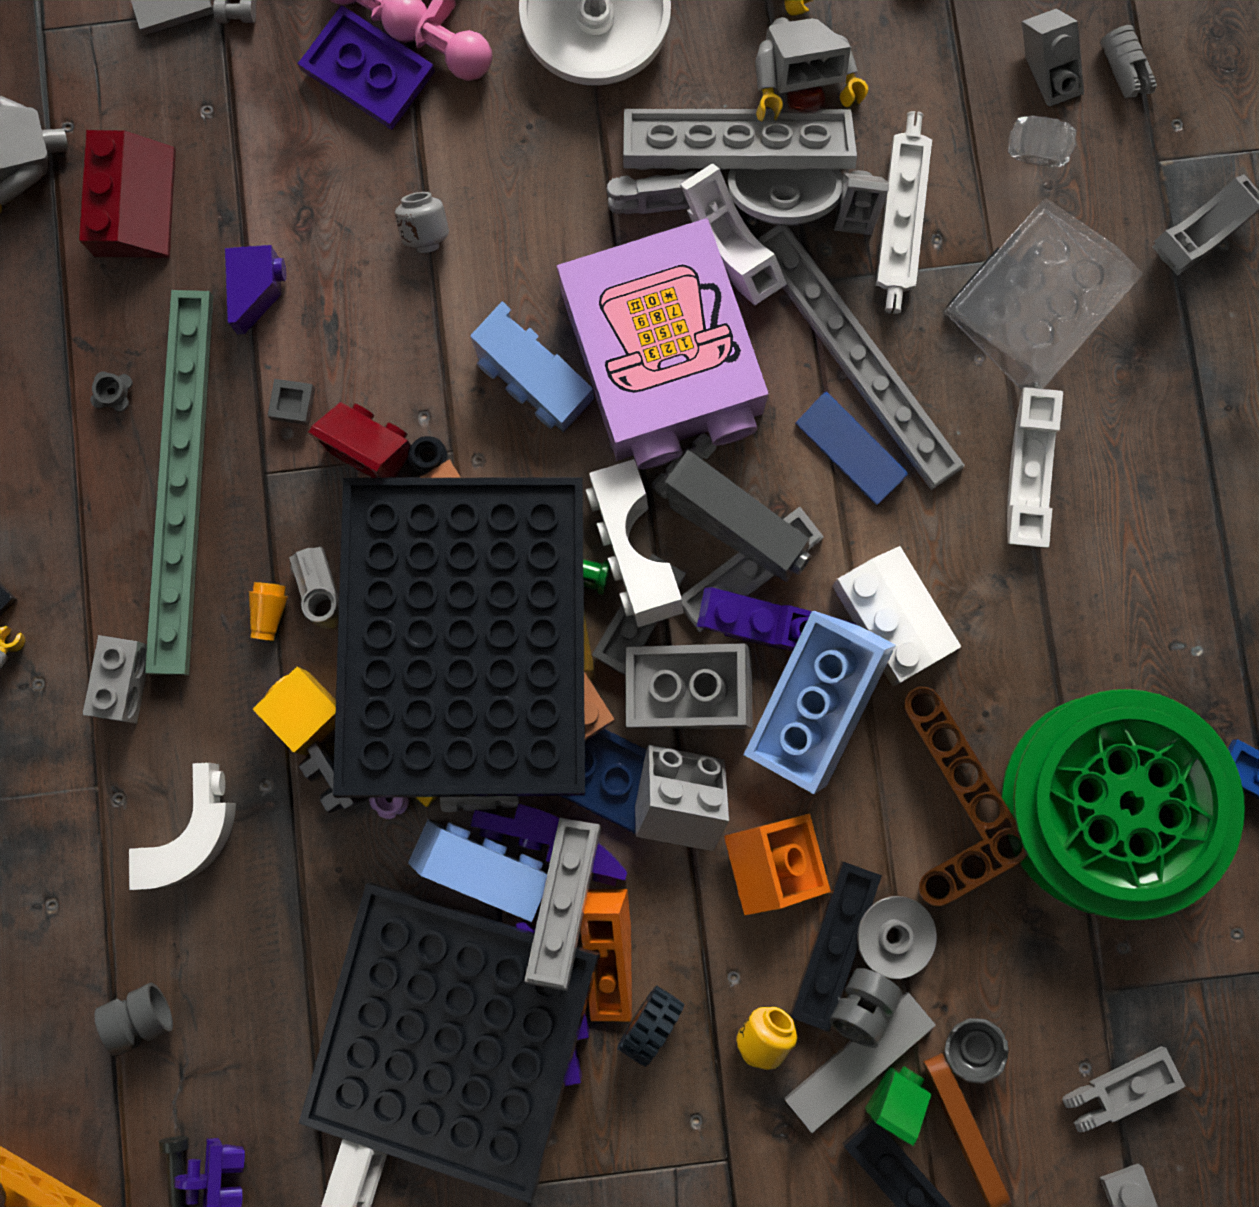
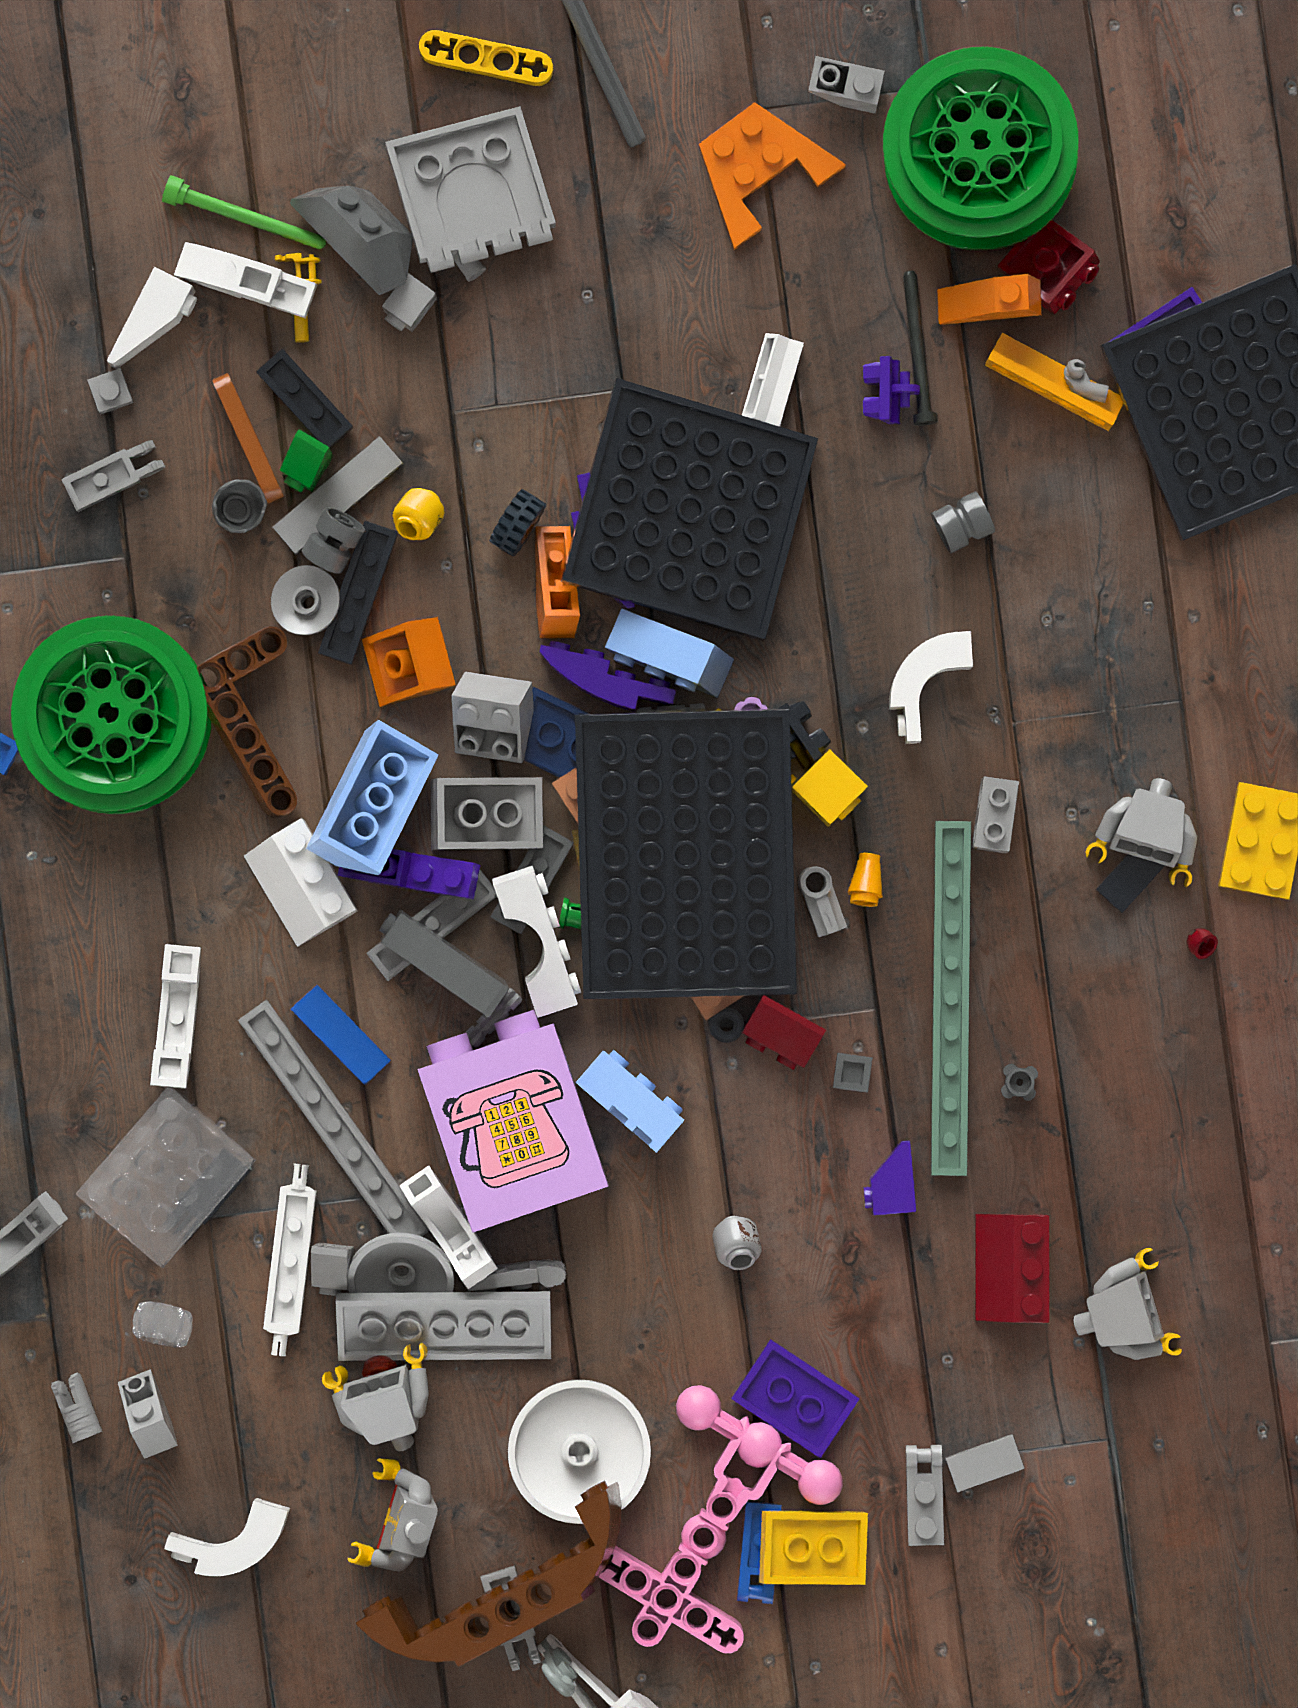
camera: 175 degrees right, 5 degrees up
(563, 904) = (592, 623): light grey tile -> none

